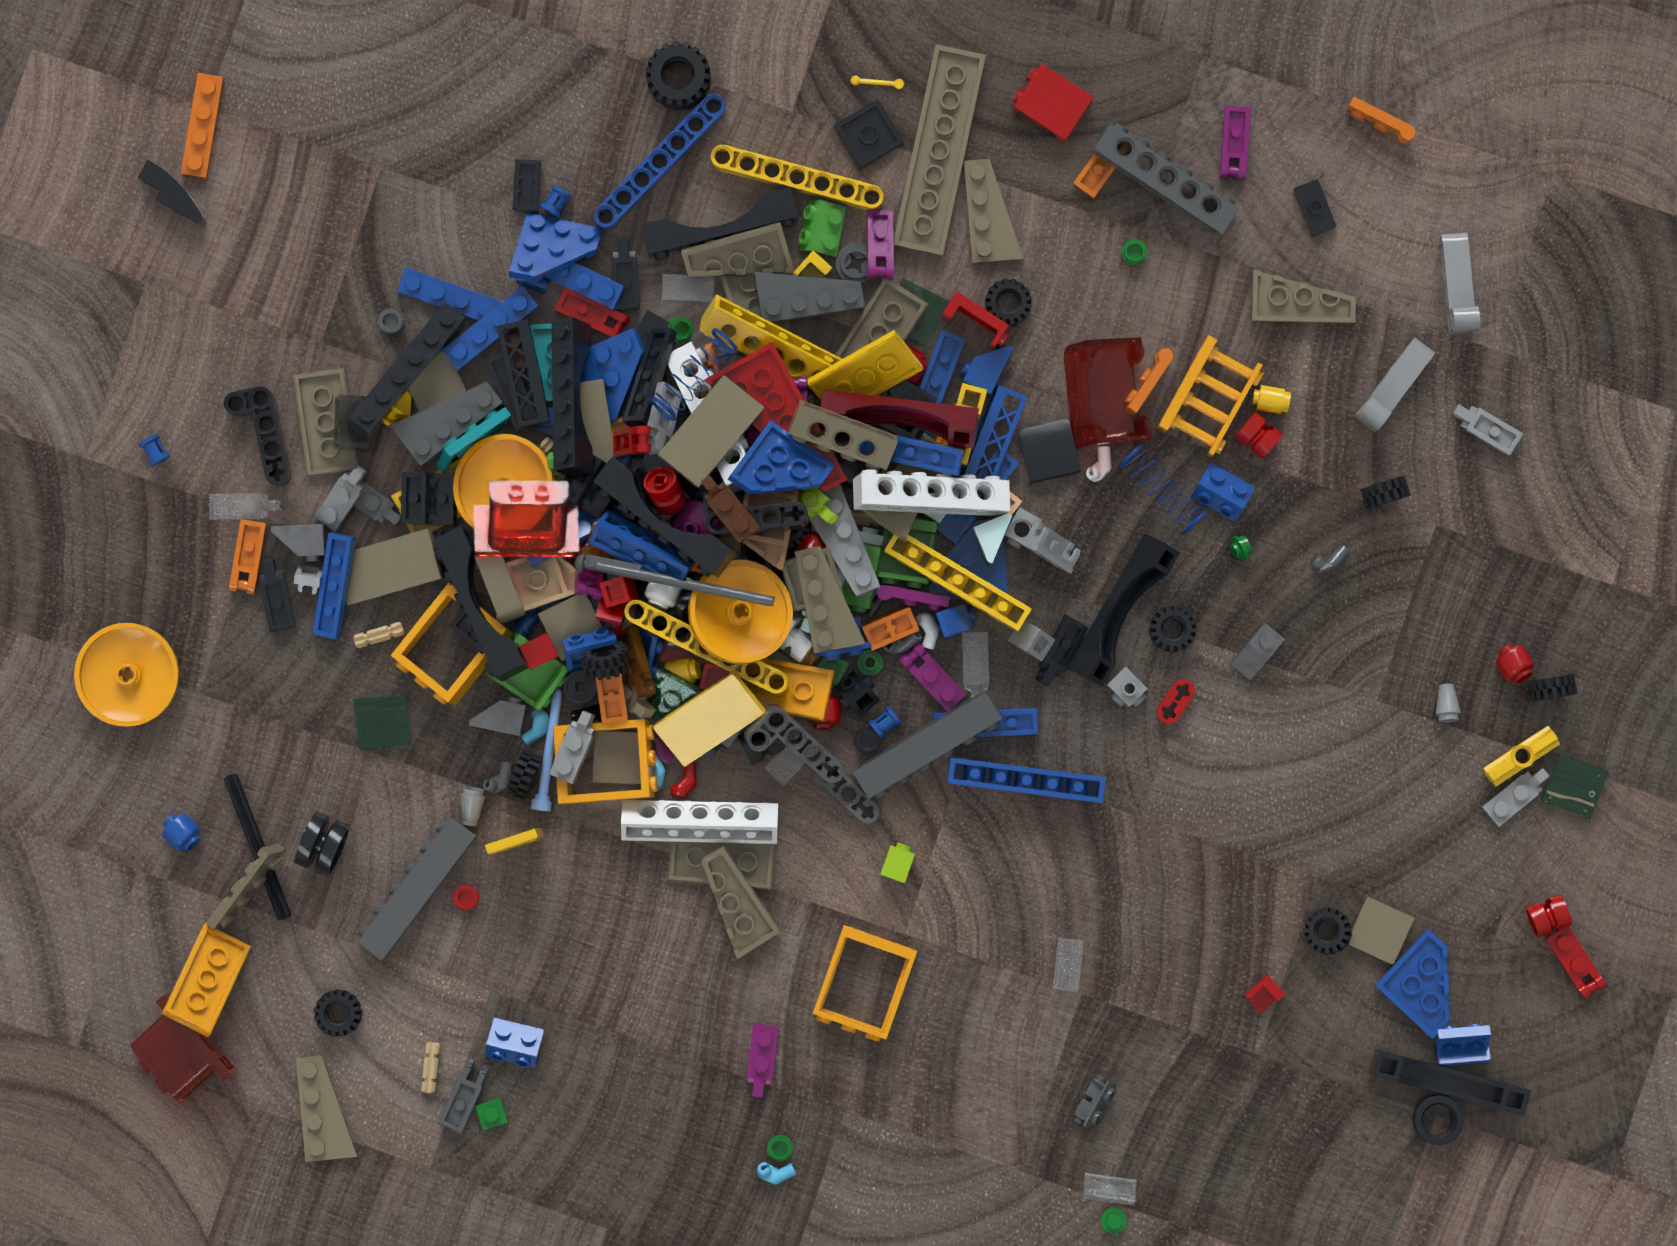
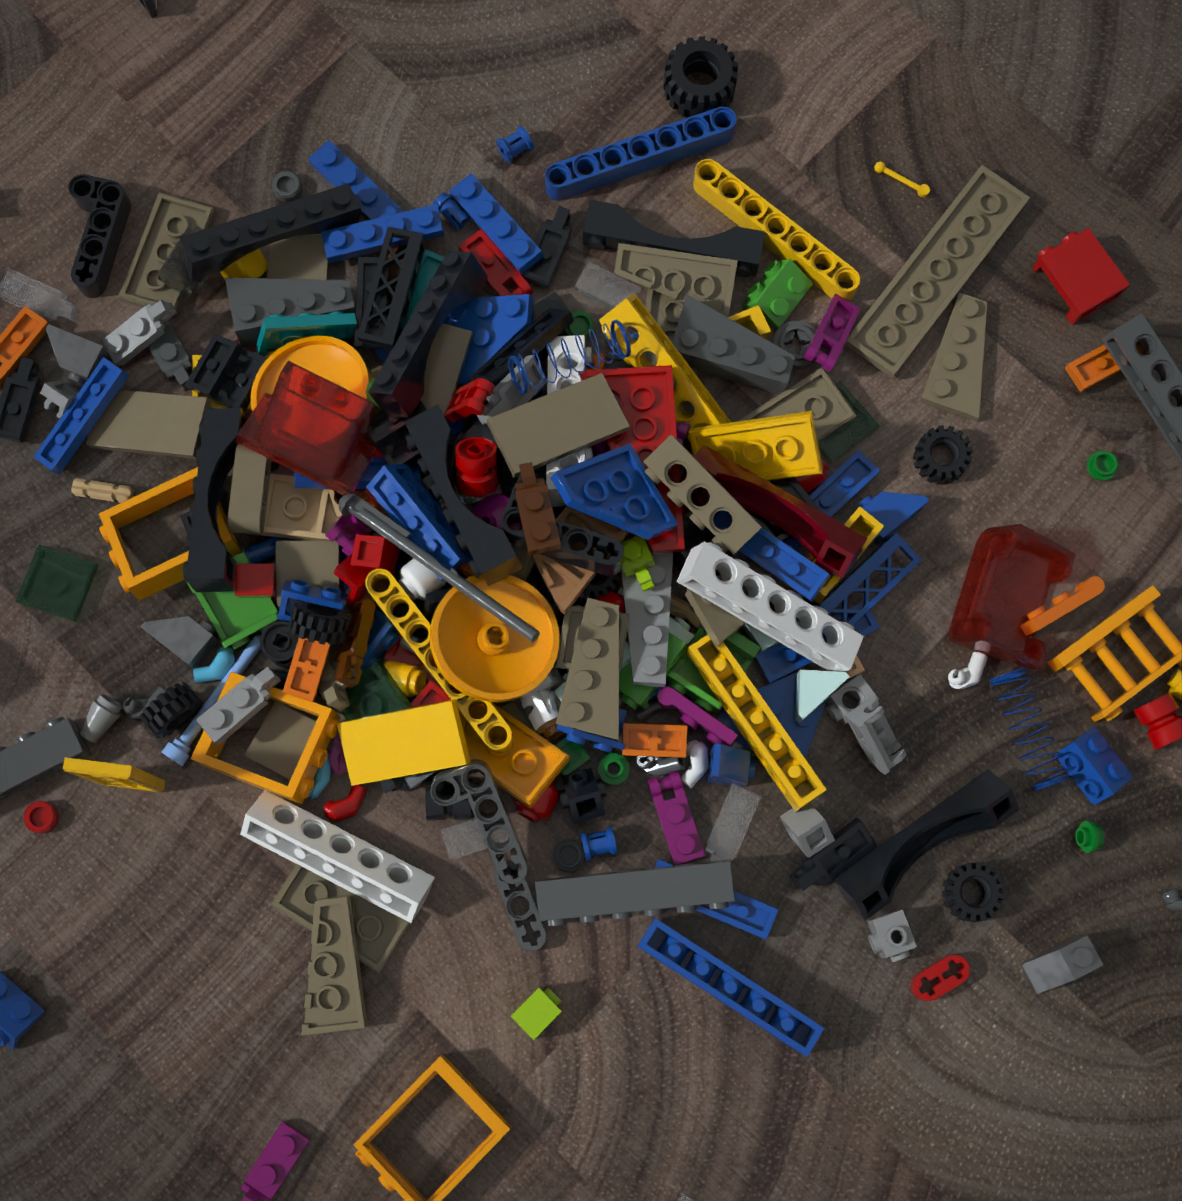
camera: 25 degrees right, 10 degrees down
(526, 185) = (493, 117): black plate -> none
(551, 245) = (488, 180): plate -> none
(868, 134) = (869, 224): black tile -> none
(978, 315) = (905, 448): red panel -> none
(1049, 451) = (918, 631): black slope -> none

